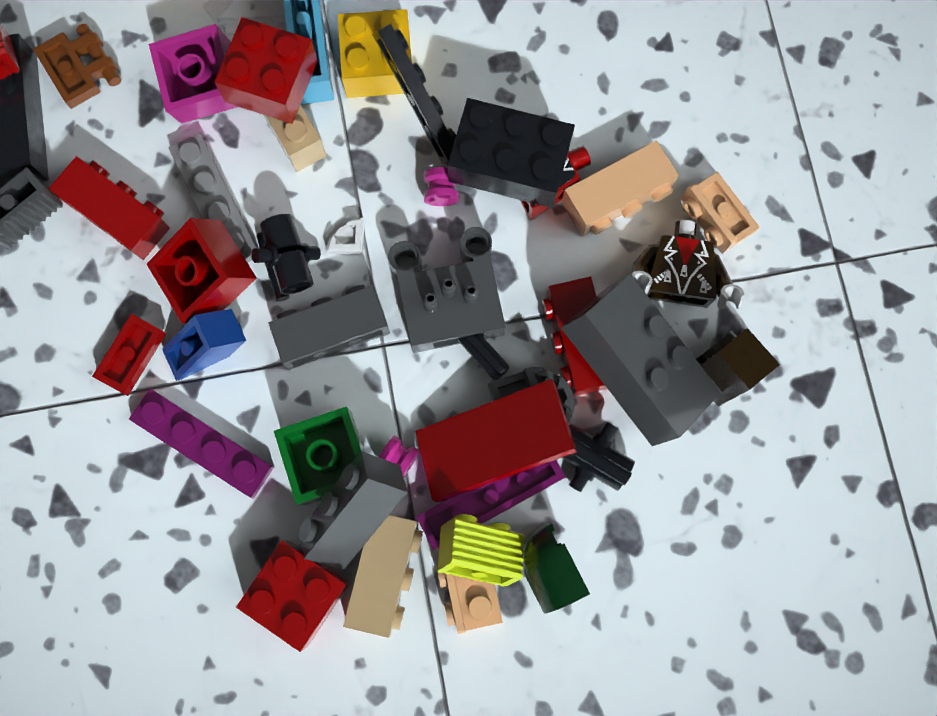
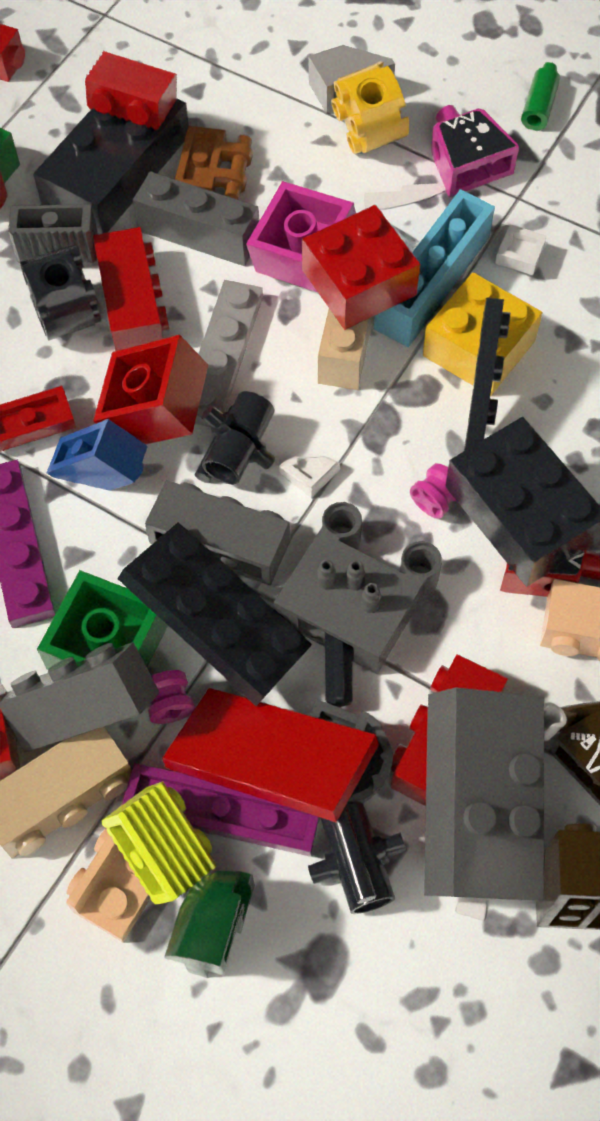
camera: 45 degrees right, 15 degrees down
(51, 238) = (60, 292): none -> black brick
(106, 116) = (195, 218): none -> dark grey brick
(381, 383) = (215, 612): none -> black plate

